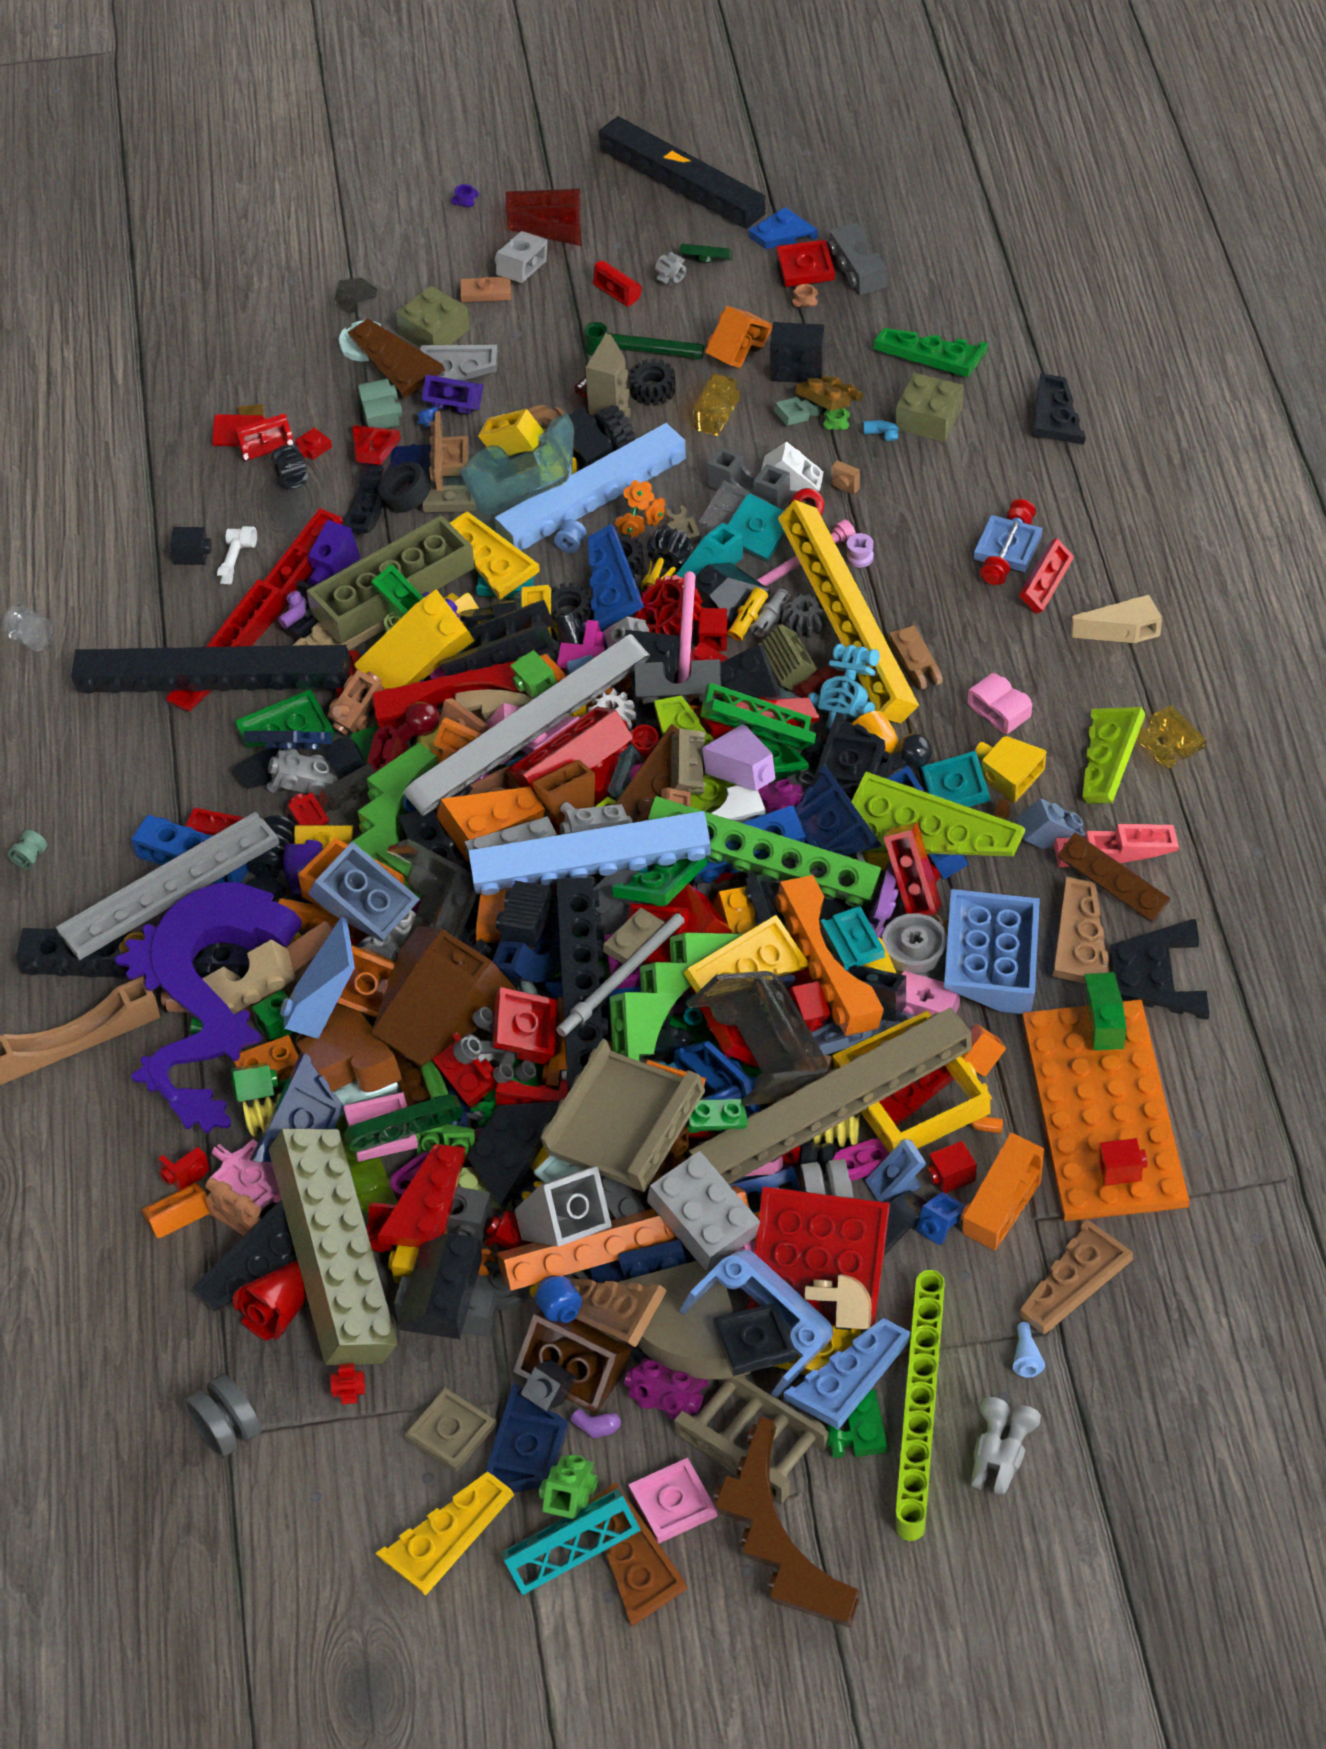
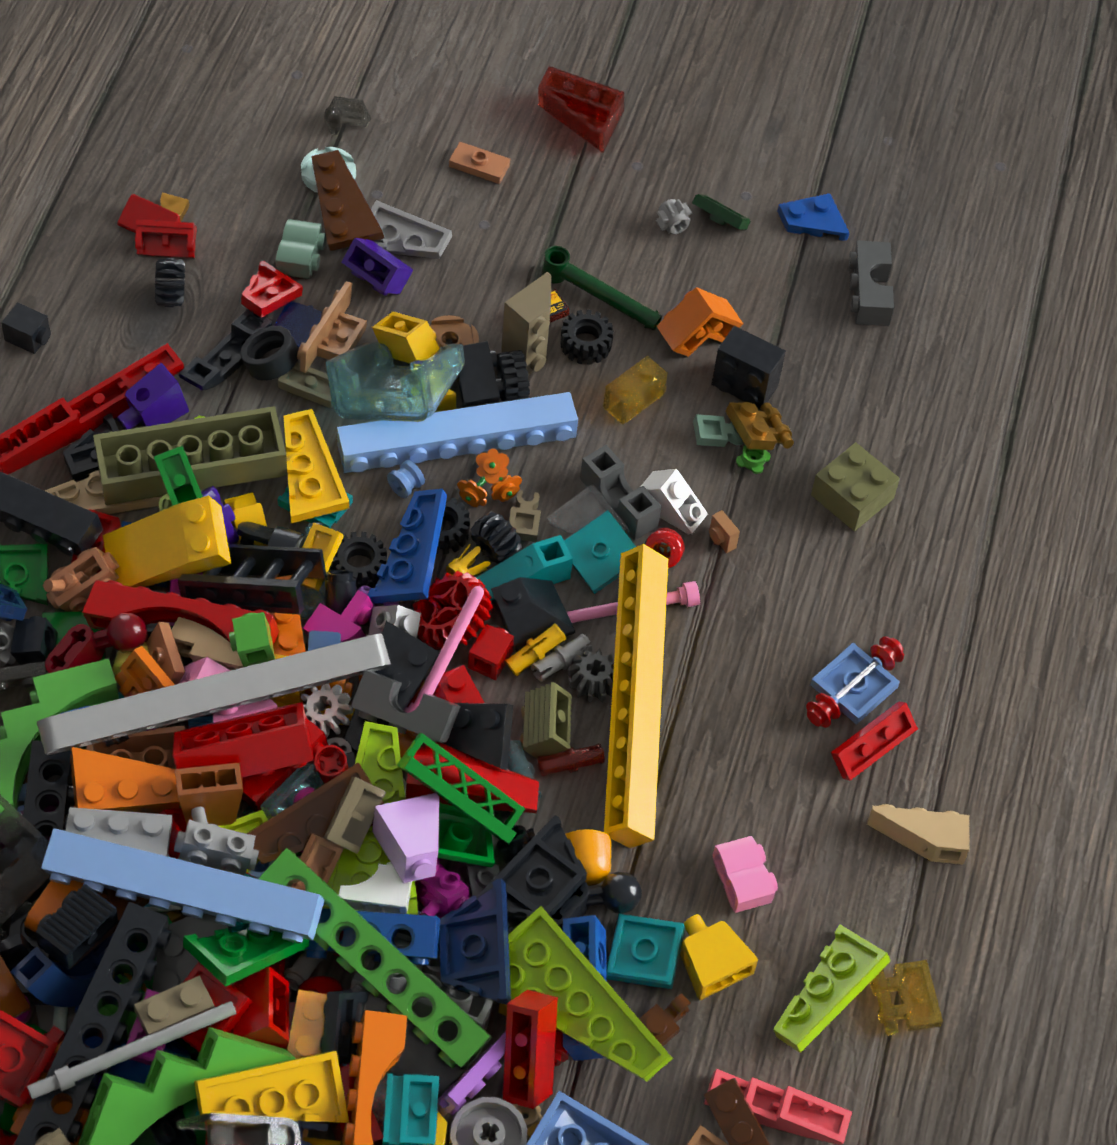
camera: 15 degrees right, 5 degrees up
(236, 538) = (79, 340): white brick -> none
(296, 610) = (83, 447): medium lavender arm -> none
(313, 444) = (209, 264): red plate -> none
(426, 416) = (338, 279): blue plate -> none
(433, 319) = (404, 176): olive brick -> none
(464, 195) = (515, 51): dark purple plate -> none
(521, 257) = (530, 142): light grey brick -> none
(616, 283) = (611, 210): red brick -> none
(682, 172) = (745, 113): black brick -> none
(805, 263) = (816, 265): red plate -> none
(805, 296) = (796, 303): nougat plate -> none
(835, 699) = (581, 804): medium azure piece -> none
(860, 550) = (688, 629): lavender wheel -> none
(881, 426) = (795, 487): dark azure arm -> none
(915, 656) = (686, 774): medium nougat hinge -> none
(932, 351) = (906, 432): green wing -> none
(1047, 822) = (715, 1047): sand blue slope -> none
(1055, 411) = (987, 547): black wing -> none

